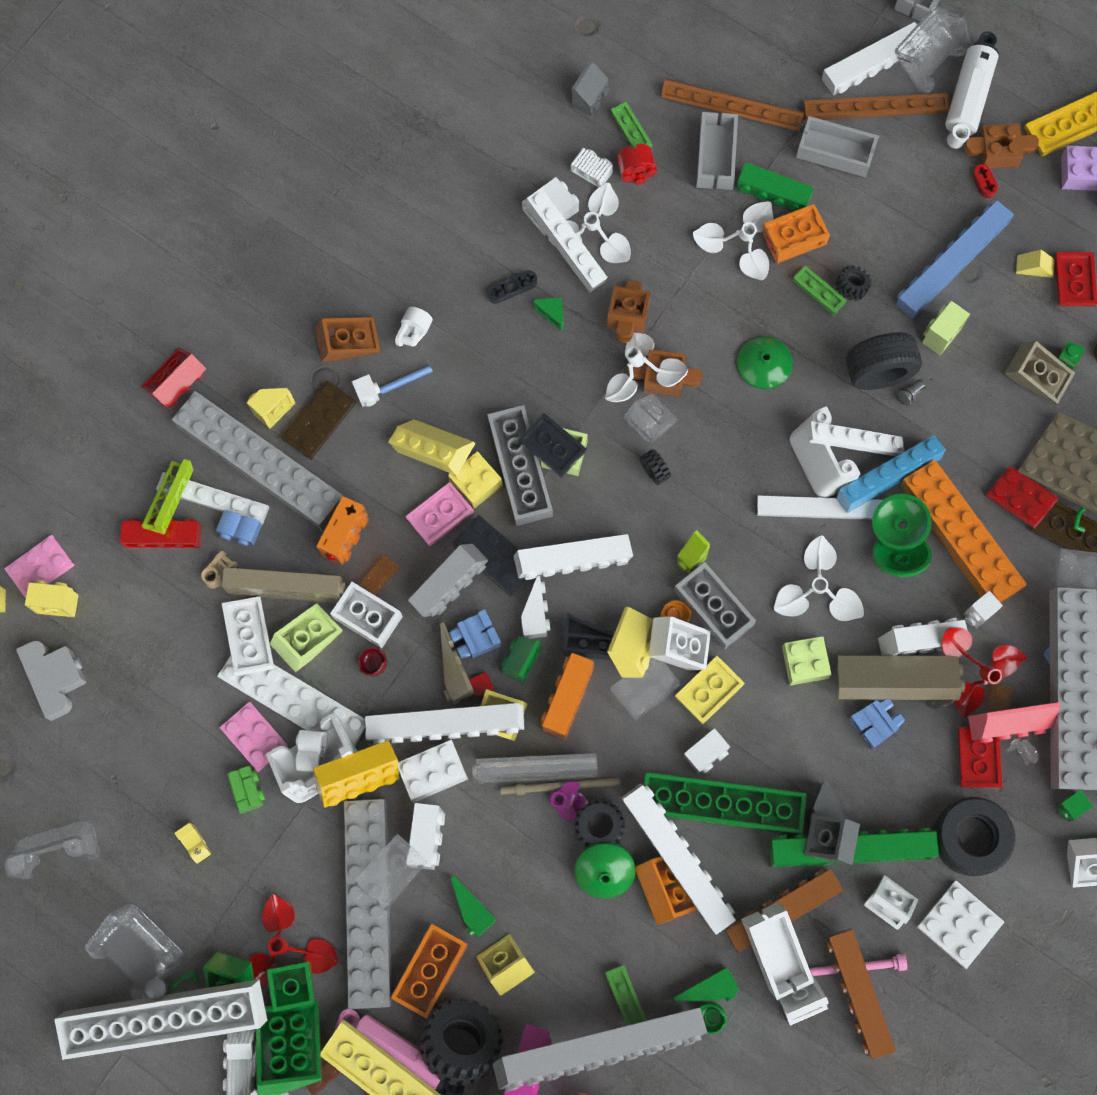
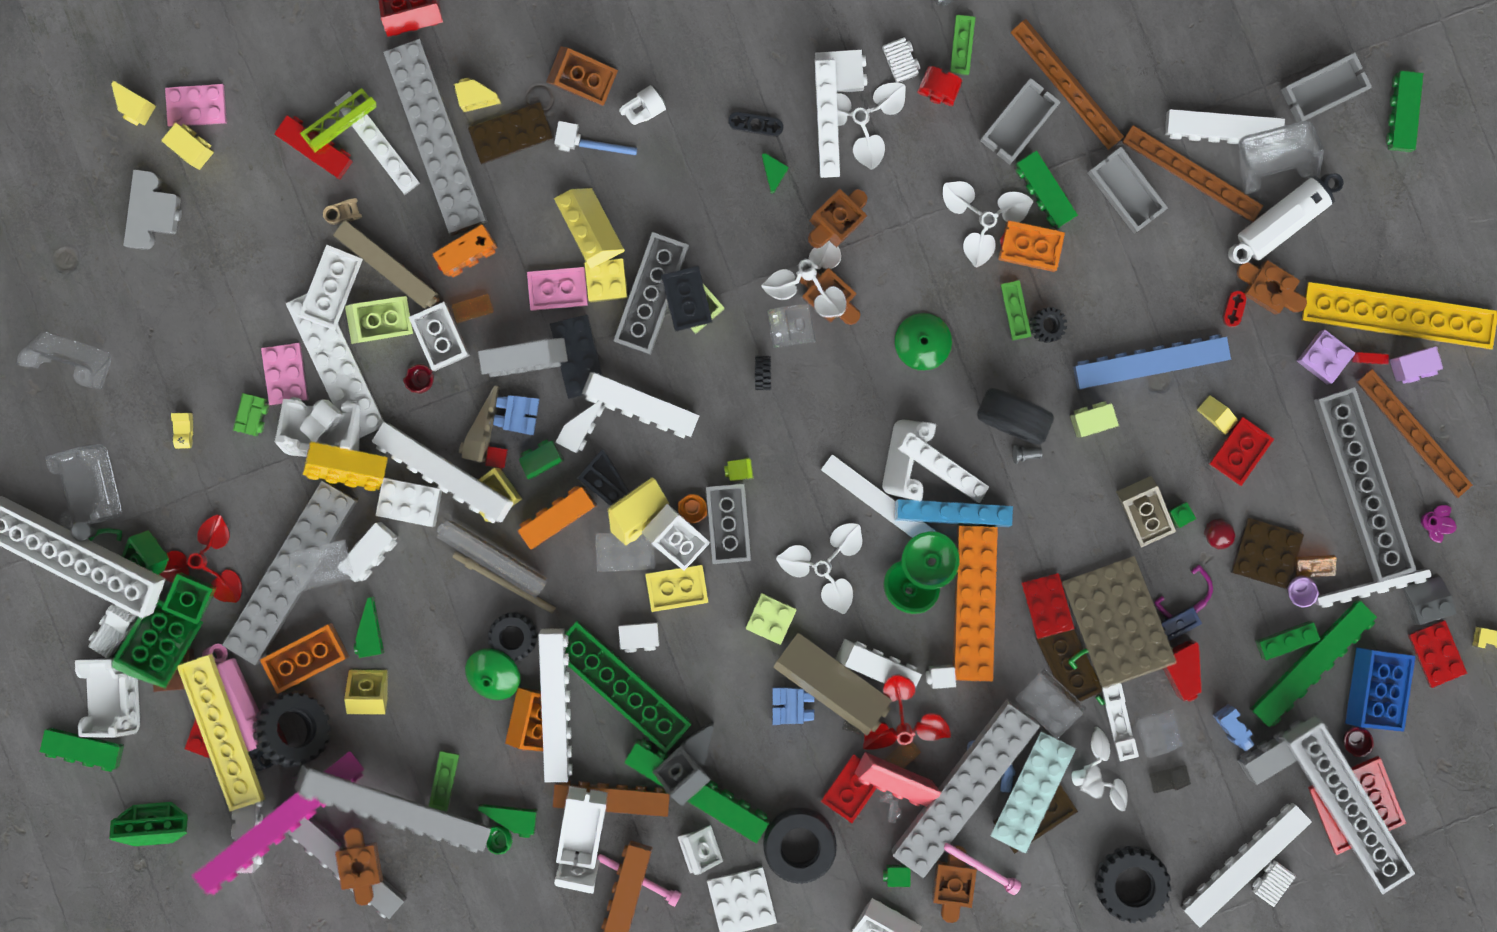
camera: 30 degrees right, 15 degrees up
(239, 528) = (382, 186): medium blue brick -> none
(571, 800) = (504, 601): magenta plate -> none

